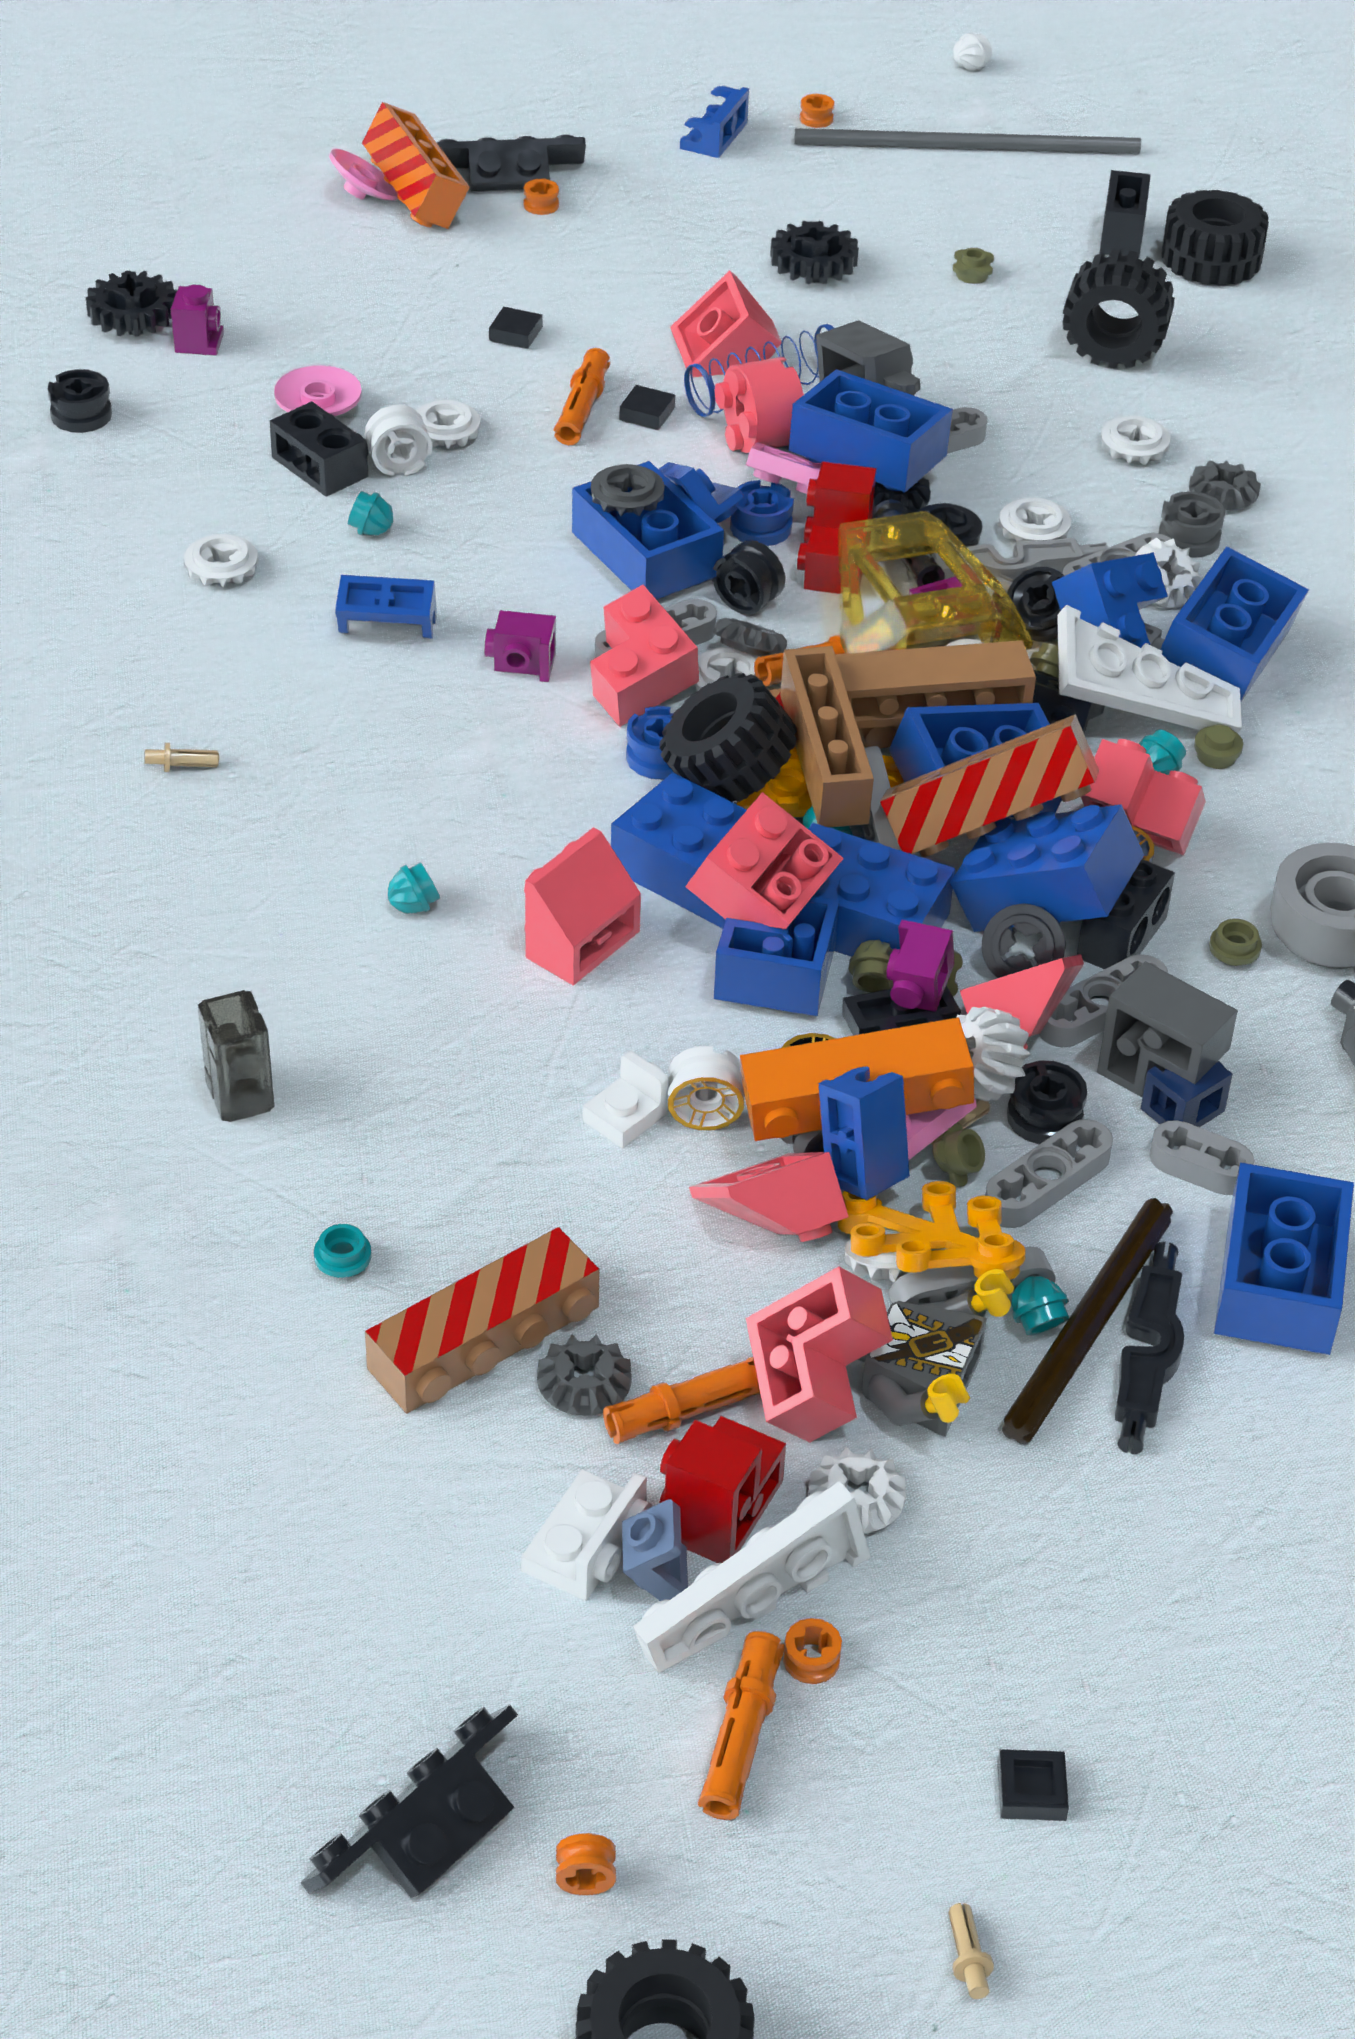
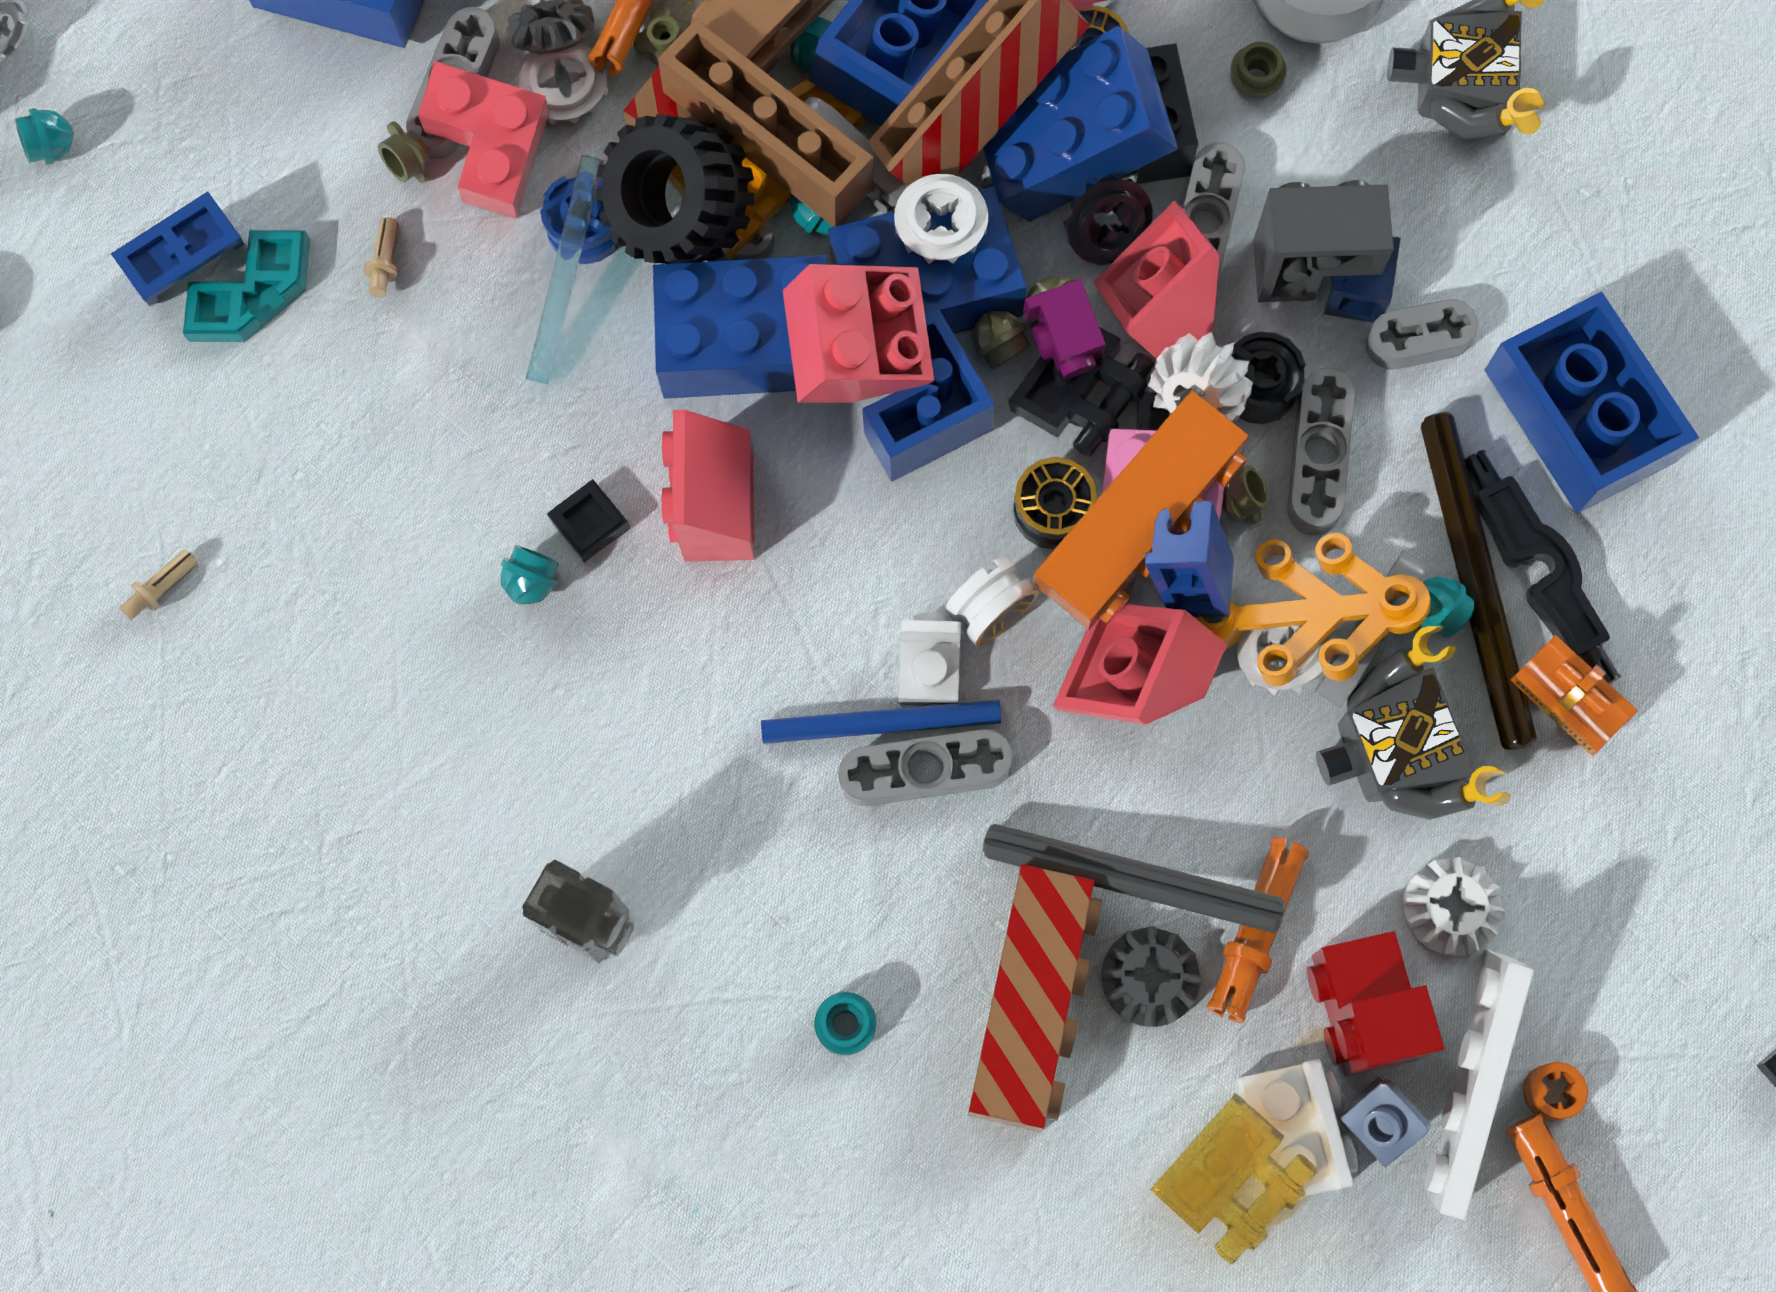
camera: 35 degrees left, 30 degrees up
(429, 661) = (238, 310): none -> teal tile
(485, 894) = (588, 520): none -> black tile
(501, 693) = (381, 268): none -> tan piece
(501, 1500) = (1218, 1165): none -> clear yellow plate
(523, 643) = (349, 194): magenta brick -> none
(559, 1116) = (881, 721): none -> blue bar
(571, 1177) = (972, 774): none -> light grey beam
(581, 645) = (404, 154): none -> olive plate
(609, 753) = (564, 270): none -> clear light blue bar
(644, 1309) = (1137, 878): none -> dark grey axle
(804, 1351) = (1332, 828): coral brick -> none
(905, 838) = (941, 194): none -> white gear
(1085, 1420) = (1574, 695): none -> orange hips

